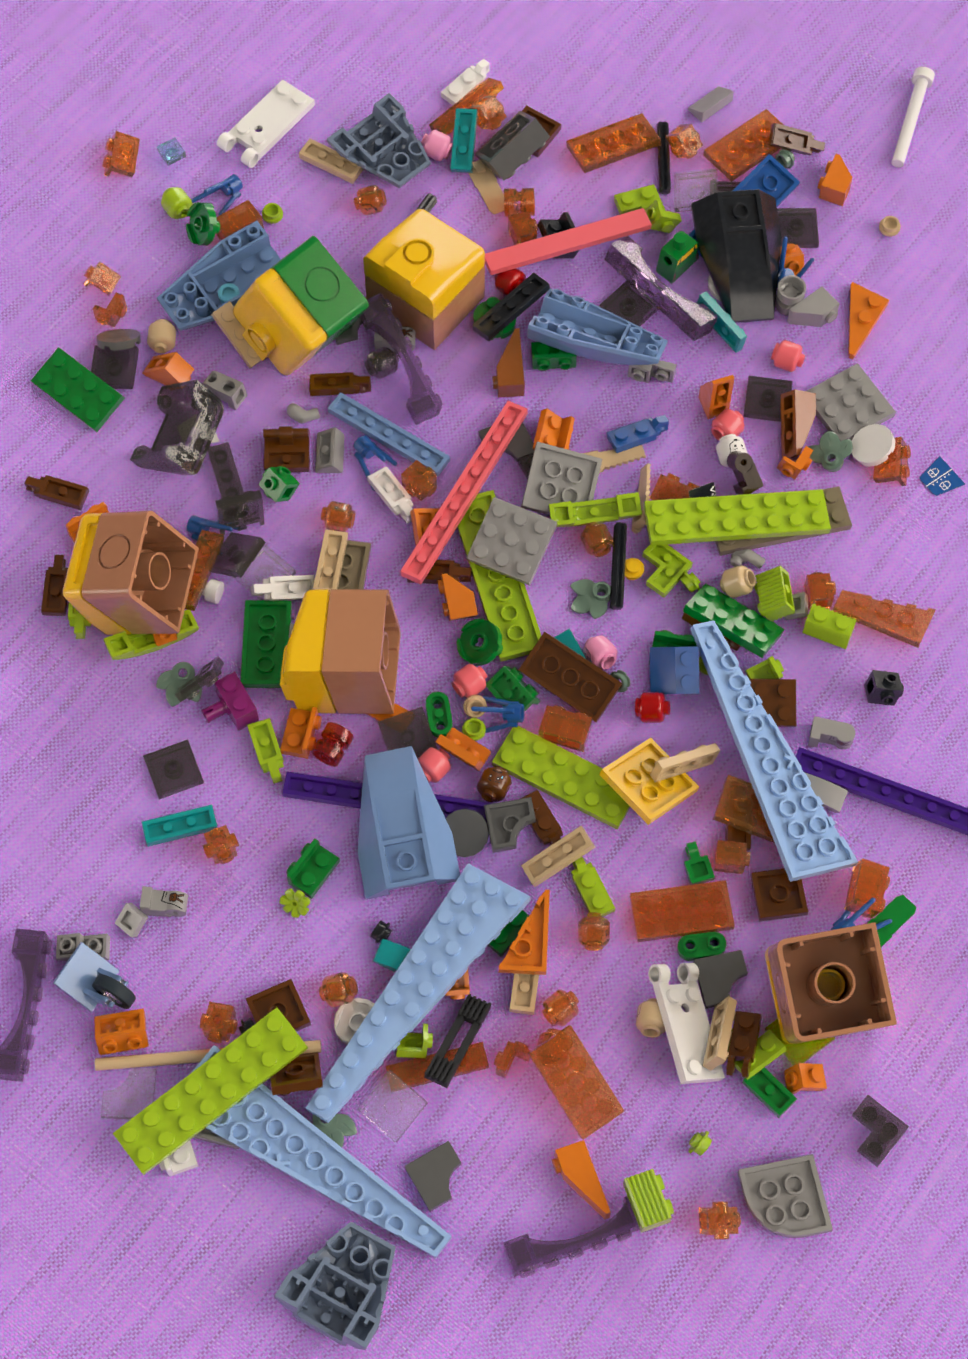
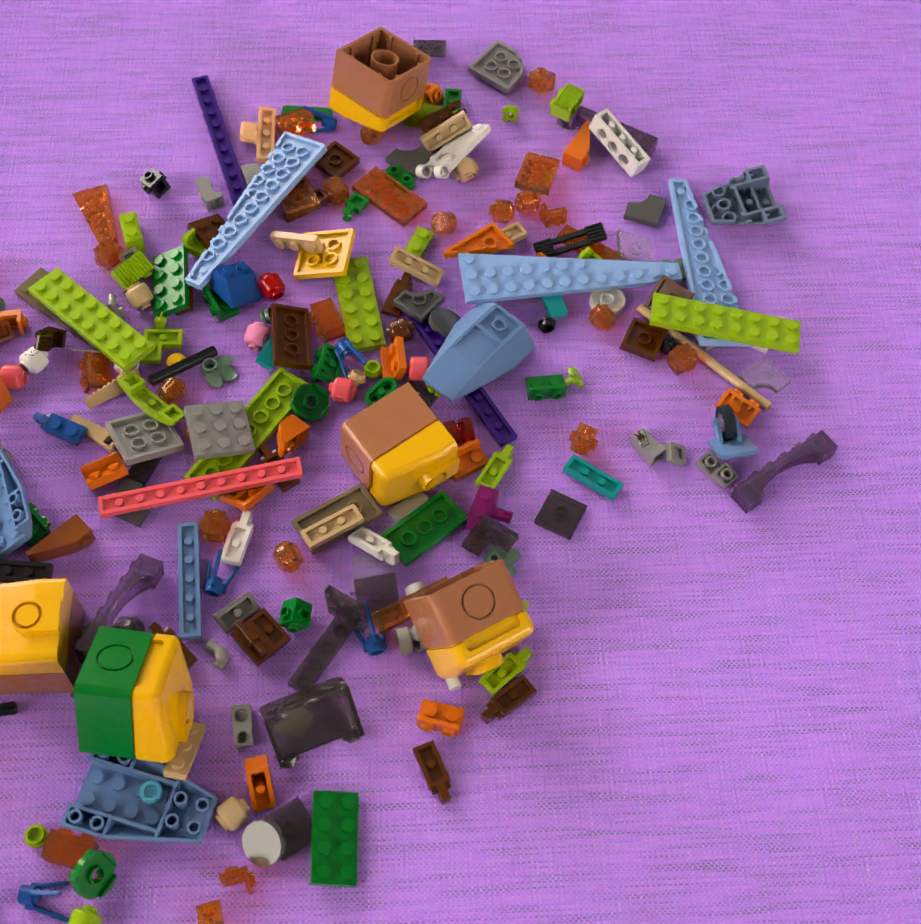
camera: 135 degrees left, 5 degrees down
(542, 1212) = (619, 142): none -> white brick
(880, 845) = (260, 133): none -> light nougat plate

